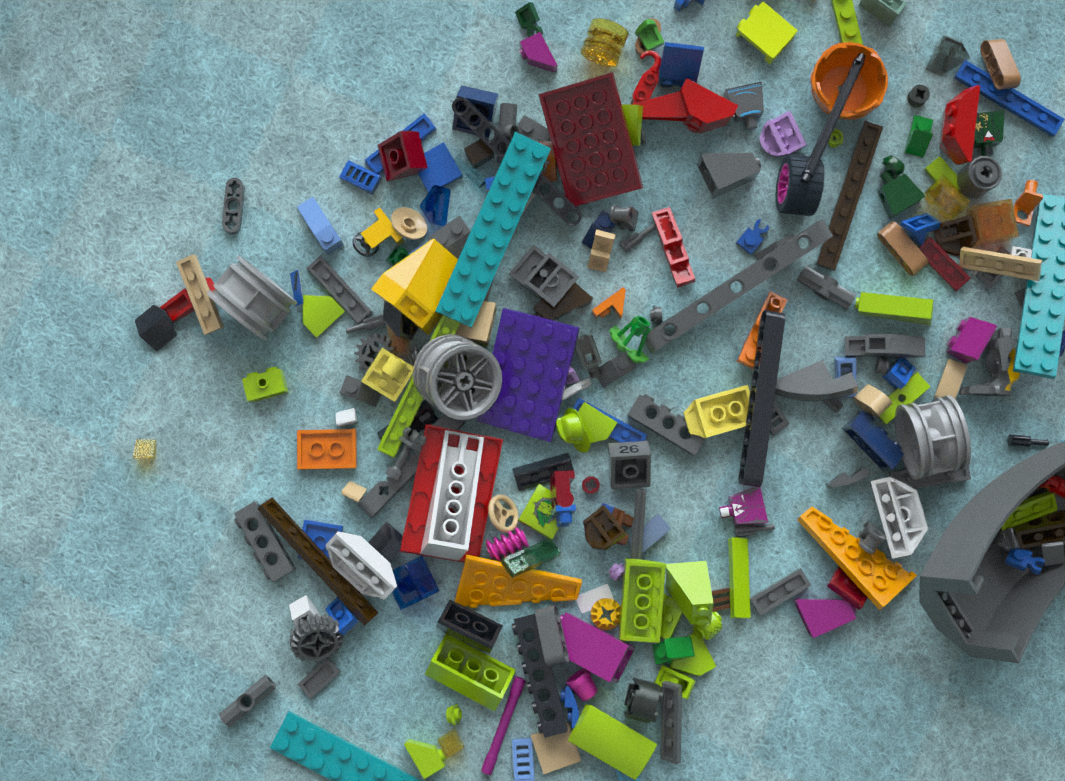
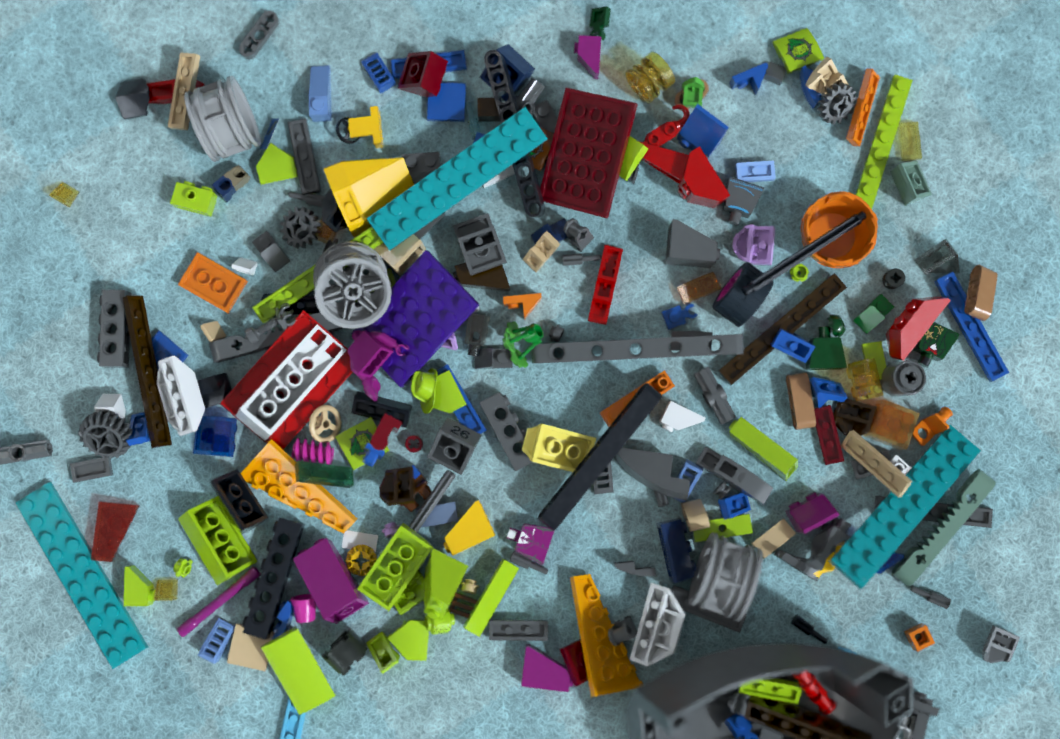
camera: 30 degrees right, 0 degrees up
(289, 351) = (231, 182): none -> leg
(369, 718) = (110, 529): none -> clear red wing
(388, 374) = (298, 249): light yellow plate -> none
(397, 255) = (368, 154): dark green plate -> none
(409, 223) = (394, 134): tan dish -> none
(436, 205) = (427, 133): clear blue slope -> none
(507, 430) = (368, 355): none -> magenta torso
(552, 636) = (300, 551): dark grey beam -> none
(572, 390) = (449, 355): white tile -> none
(671, 722) = (358, 684): dark grey tile -> none
(673, 650) = (397, 624): green slope -> none
(685, 531) = (469, 531): none -> yellow slope
(716, 579) = (469, 586): none -> tan plate
(744, 71) = (755, 171): none -> light blue plate
(756, 202) = (698, 288): none -> clear orange slope
(766, 31) = (795, 148): neon yellow panel -> none
(807, 325) = (678, 417): none -> white slope
(868, 204) = (793, 345): none -> blue slope

